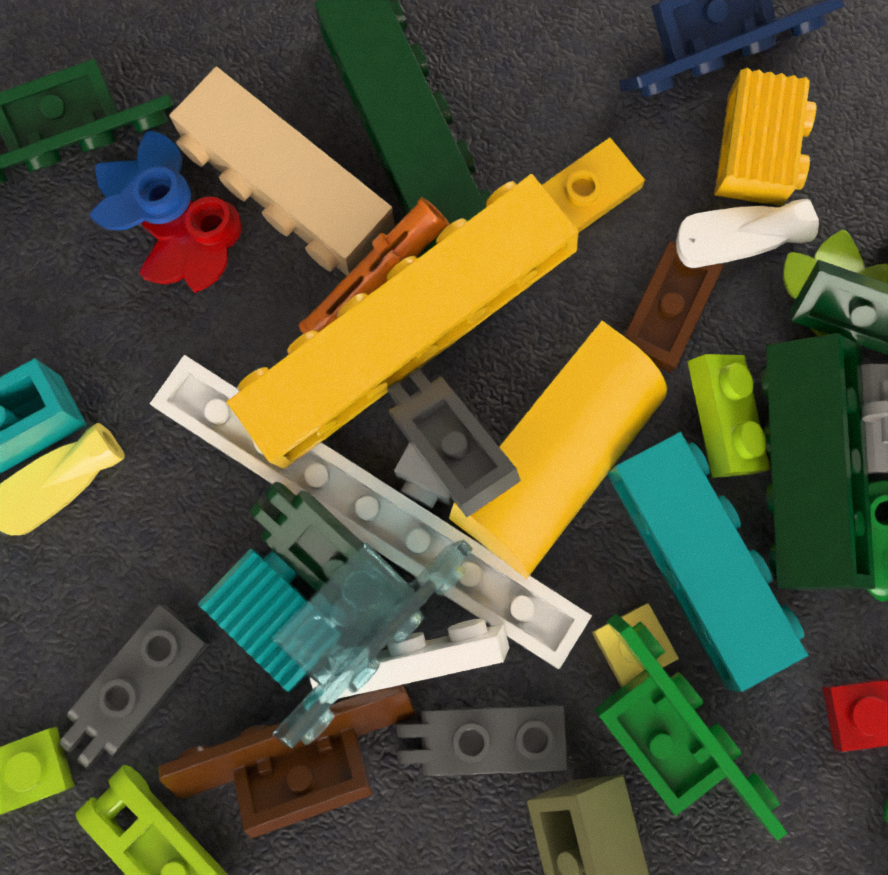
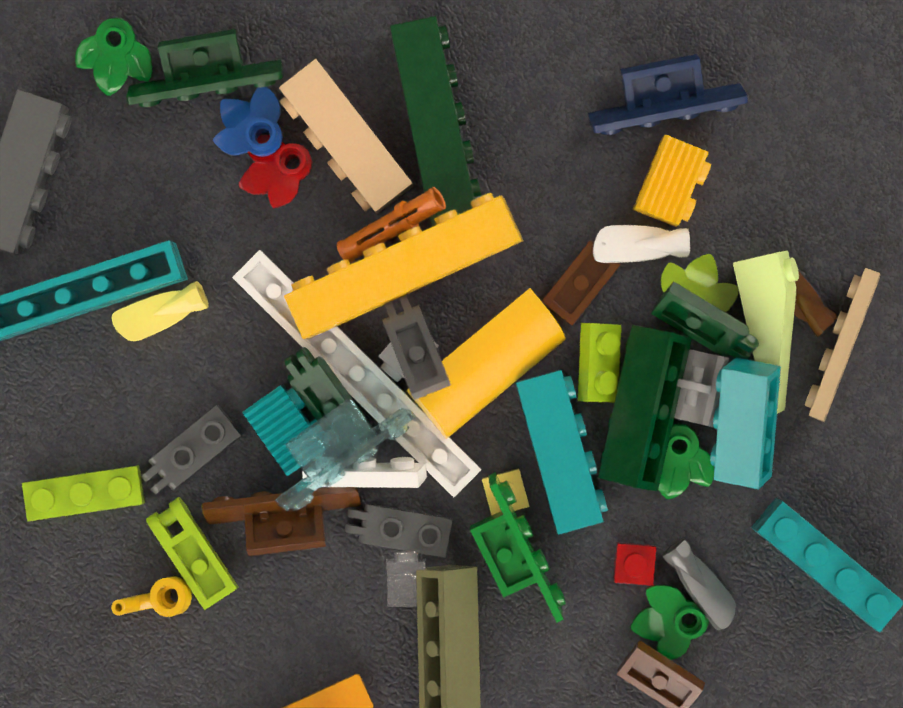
camera: 10 degrees right, 10 degrees up
(508, 821) = (402, 578): none -> clear bracket
(594, 184) = (542, 190): yellow plate -> none

